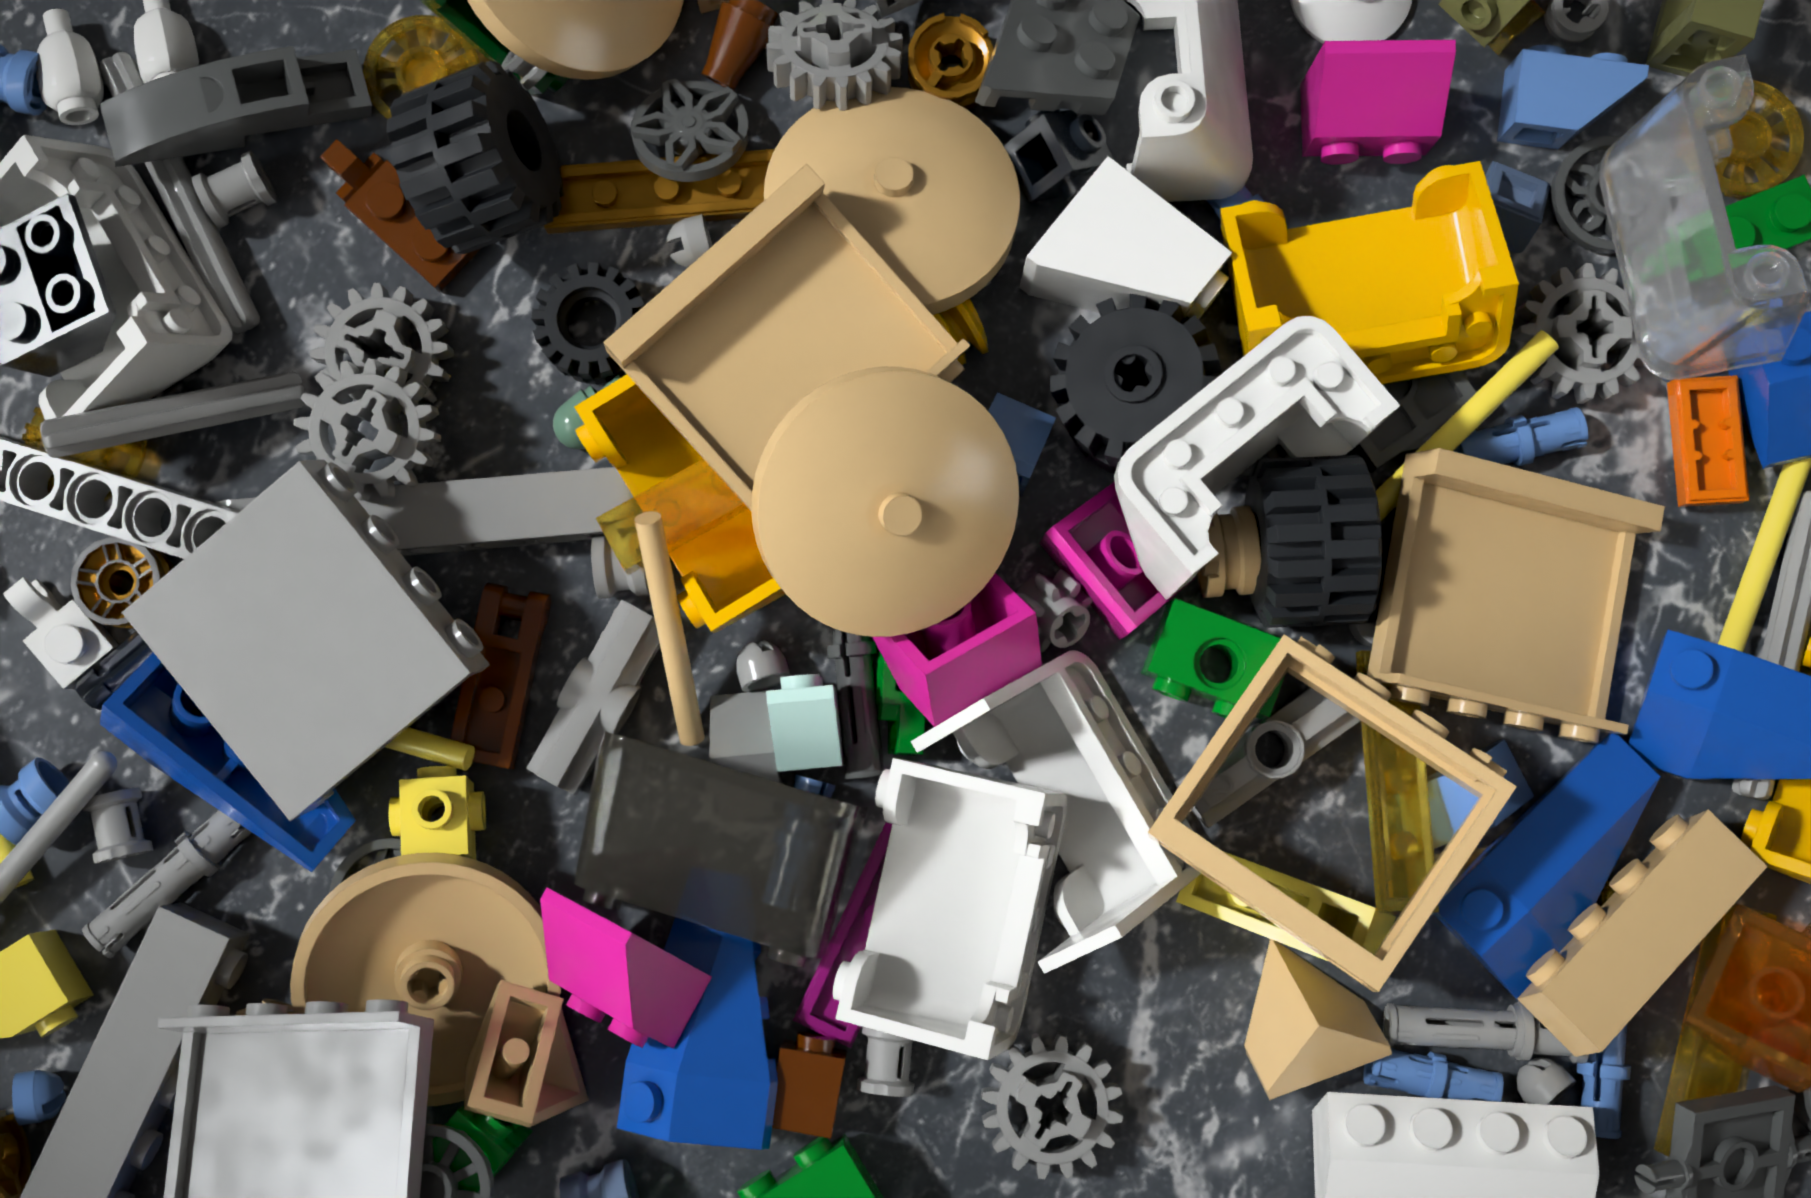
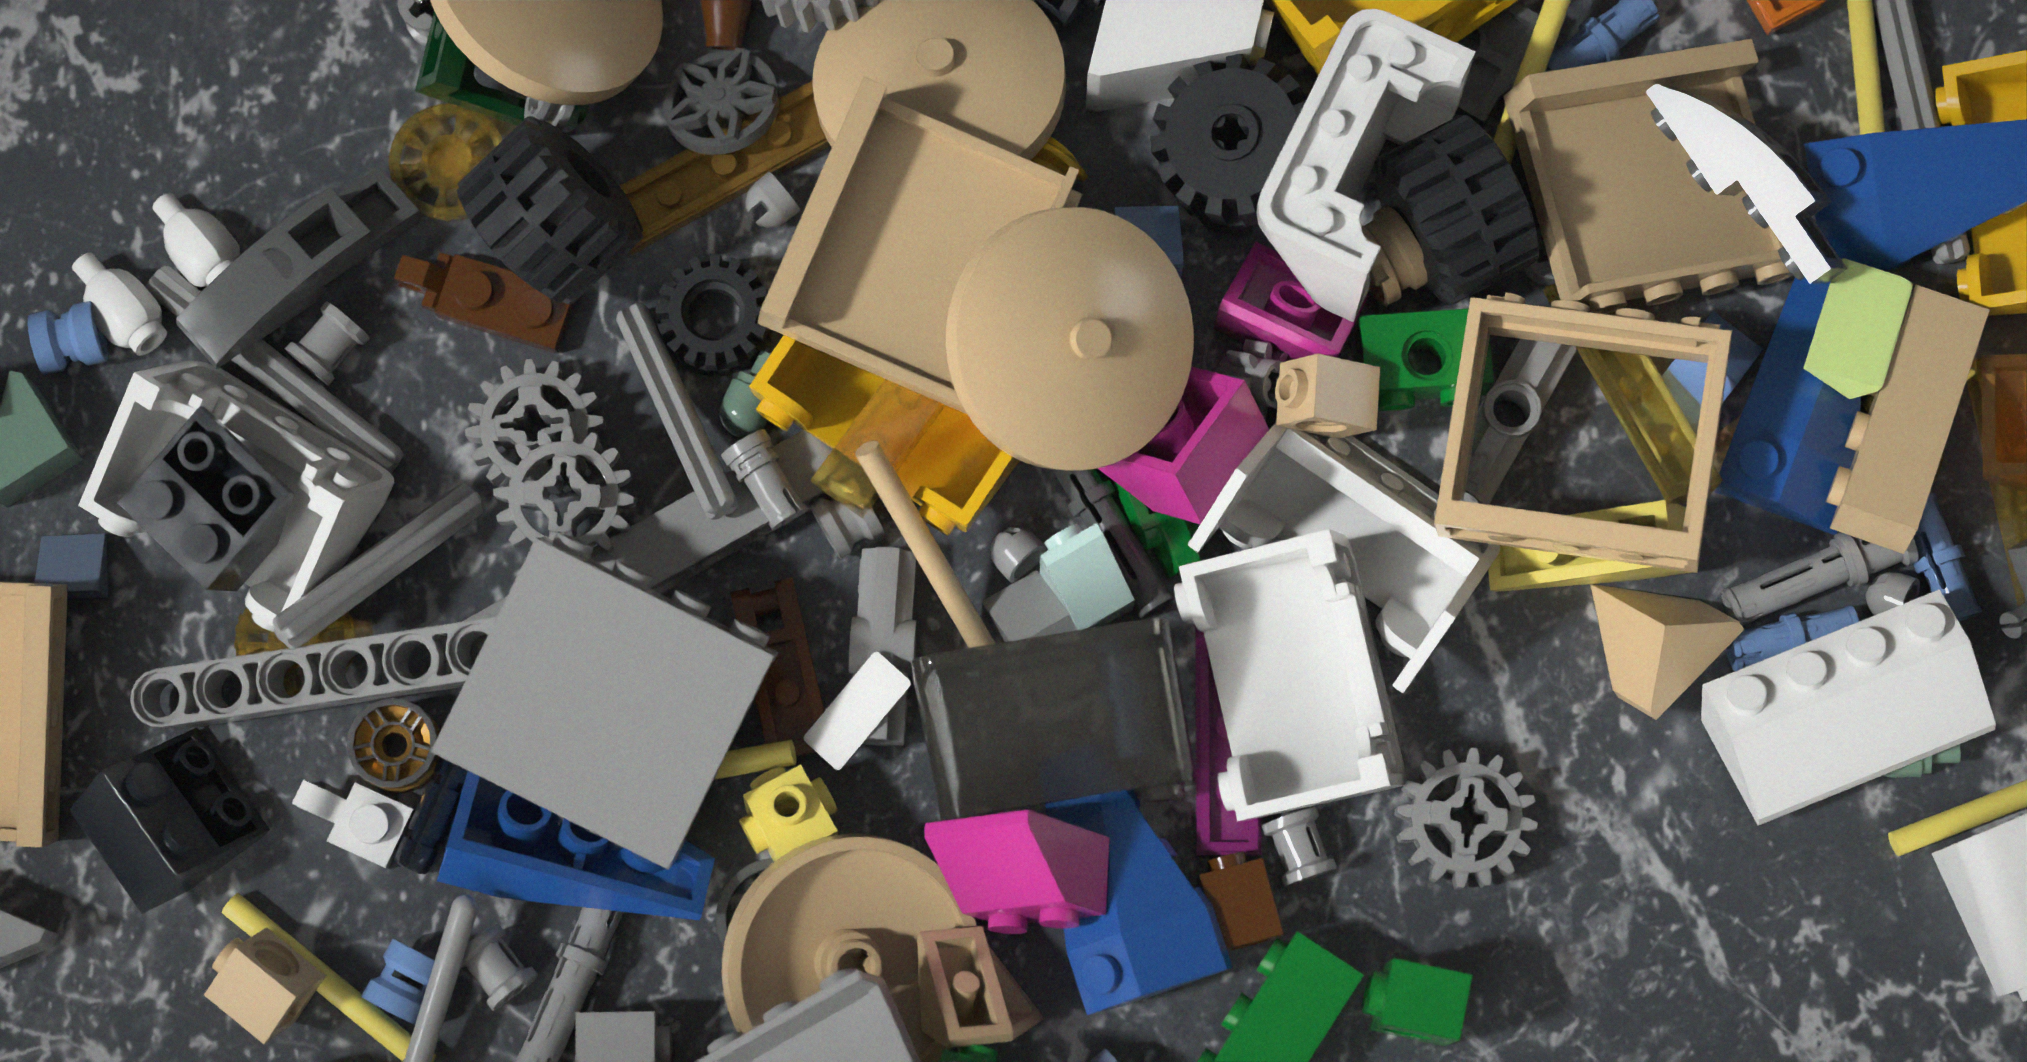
camera: 25 degrees left, 5 degrees down
(511, 398) = (676, 411): none -> light grey axle
(543, 748) = (857, 710): none -> white sticker
(555, 480) = (758, 467): none -> light grey pin
(1108, 660) = (1327, 396): none -> tan brick
(1599, 609) = (1738, 156): none -> slope
(1635, 827) = (1858, 329): none -> yellowish green slope

